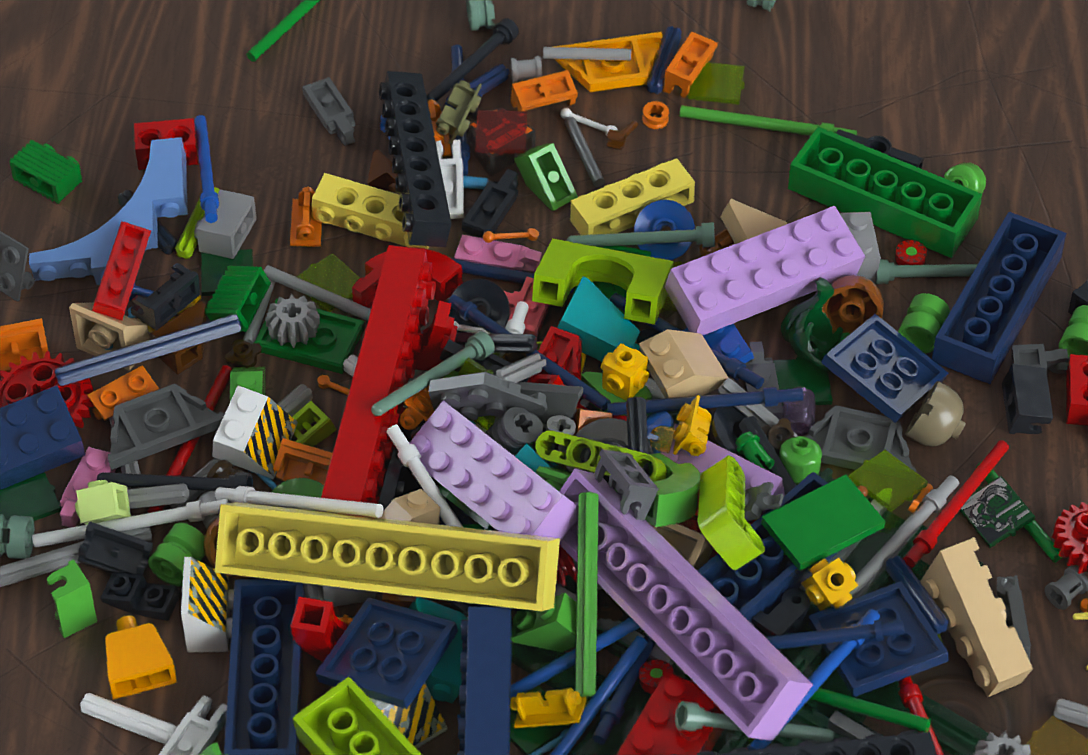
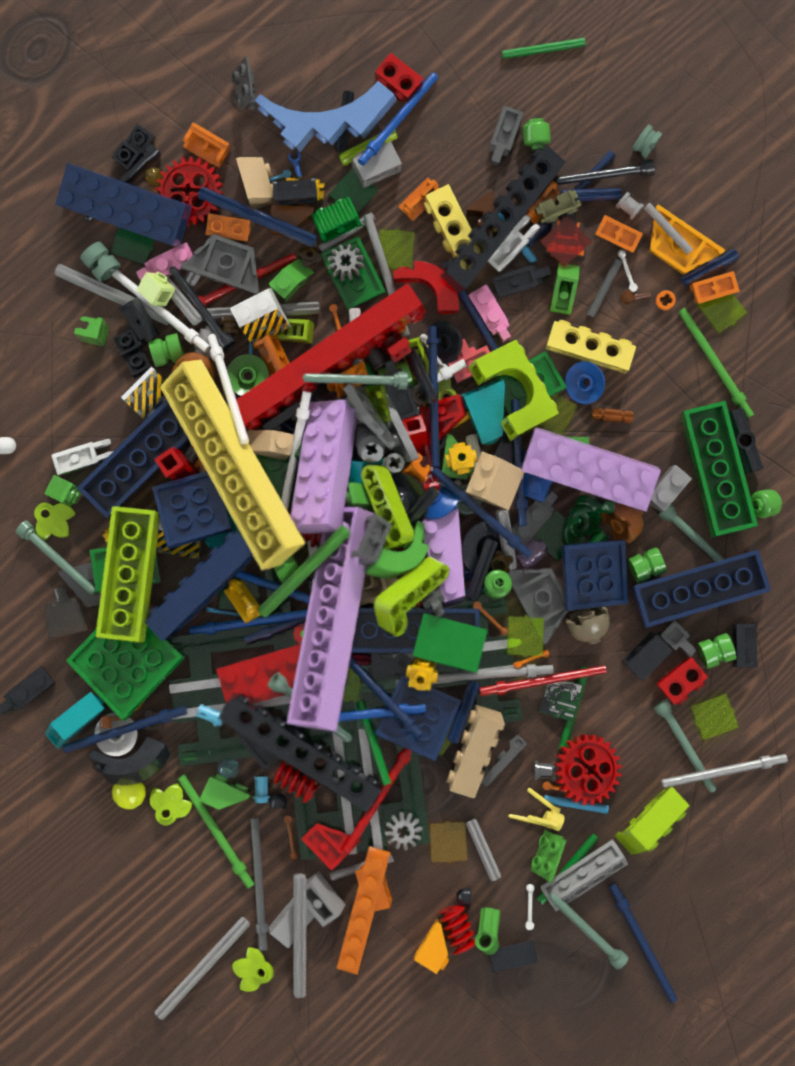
camera: 45 degrees right, 35 degrees up
(45, 170) = (323, 38): green brick -> none
(121, 270) = (285, 155): red tile -> none
(127, 718) = (67, 416): white axle -> none
(137, 659) = (97, 388): light orange torso -> none
(362, 82) = (536, 133): none -> bright green head
(522, 369) = (405, 413): light grey axle -> none
(532, 234) = (522, 316): orange hinge -> none
(665, 438) = (433, 517): clear yellow hinge -> none
(692, 428) = (463, 518): yellow hinge -> none
(701, 235) = (596, 406): sand green piece -> none
(747, 222) = (624, 432): tan slope -> none
(754, 452) = (473, 564): green pin -> none
(910, 253) = (693, 515): red tile -> none

